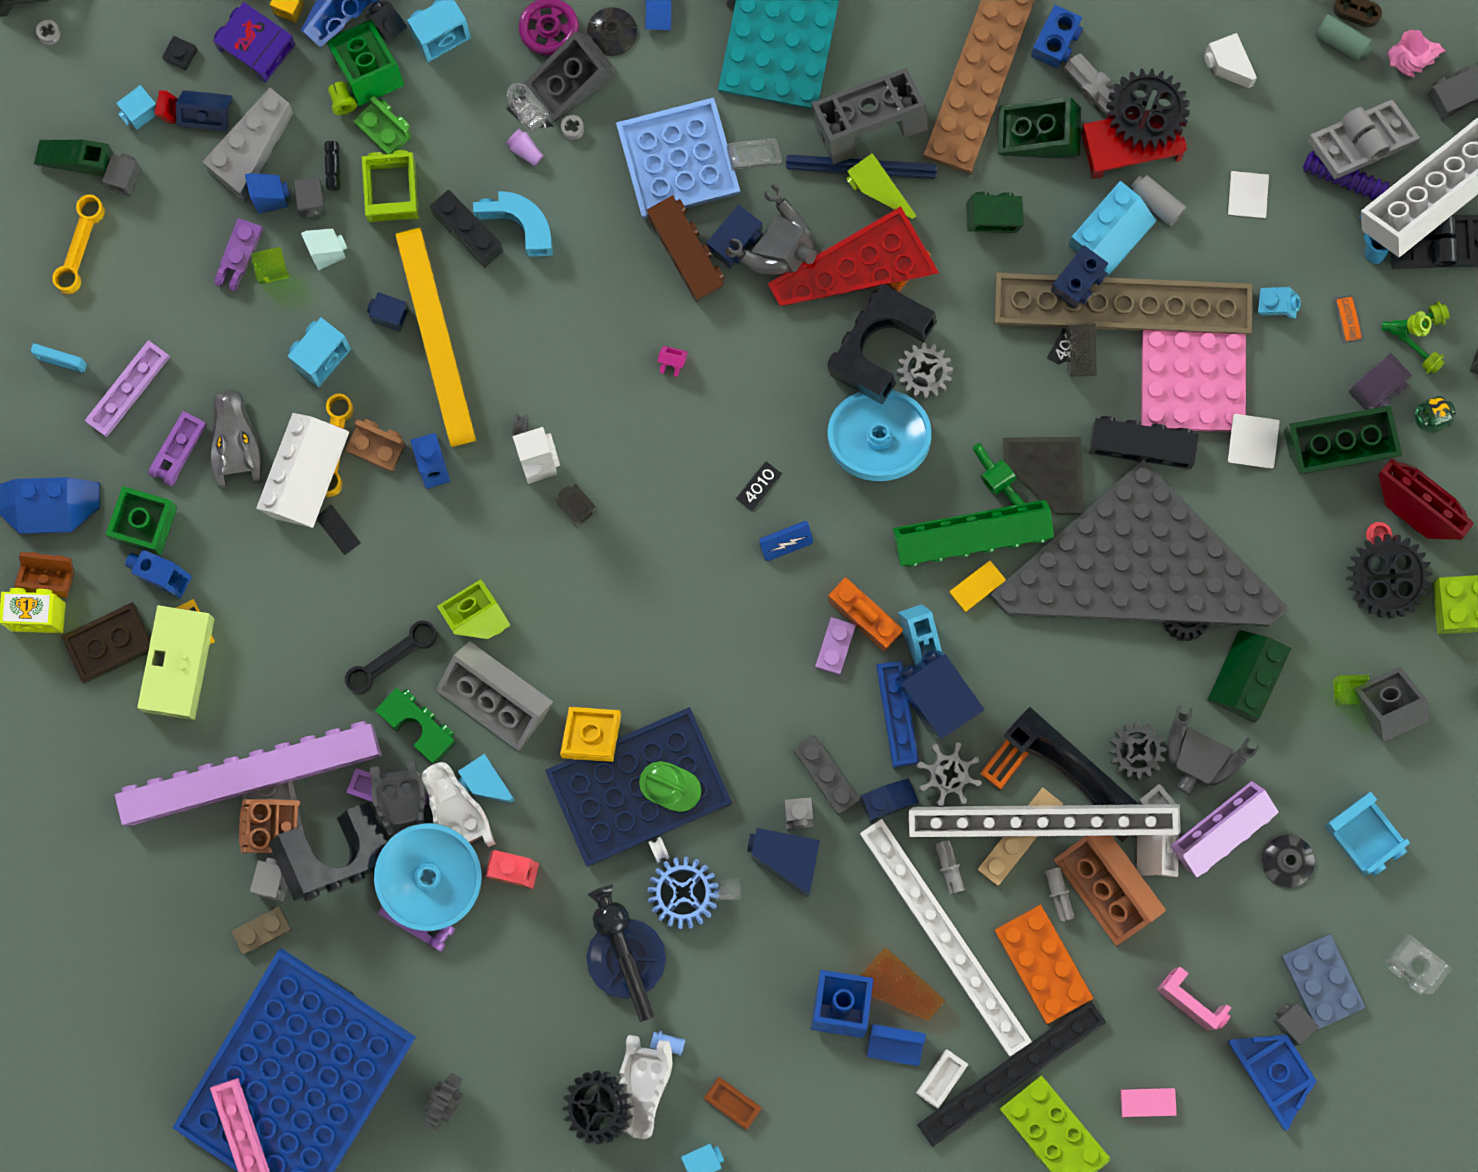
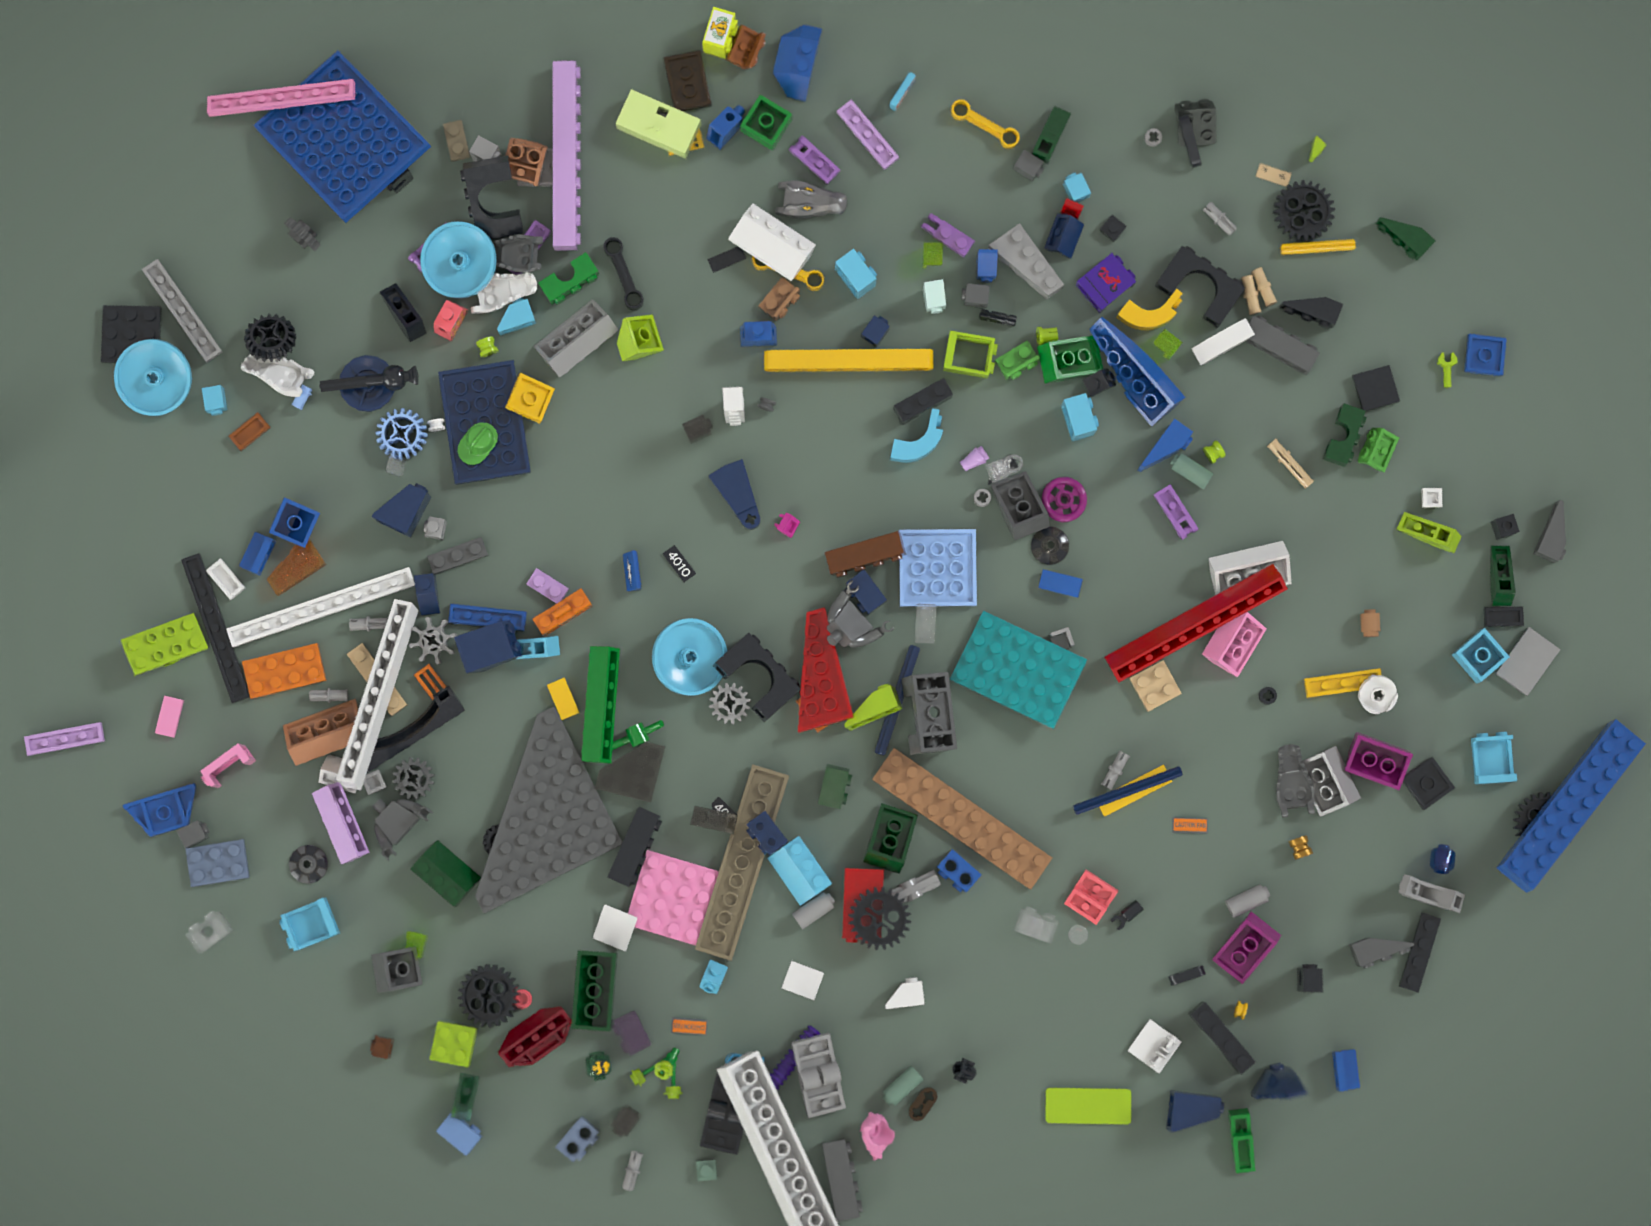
camera: 100 degrees right, 5 degrees up
(516, 935) = (403, 312): none -> black slope
(535, 810) = (487, 346): none -> lime wheel
(644, 435) = (736, 490): none -> dark blue piece

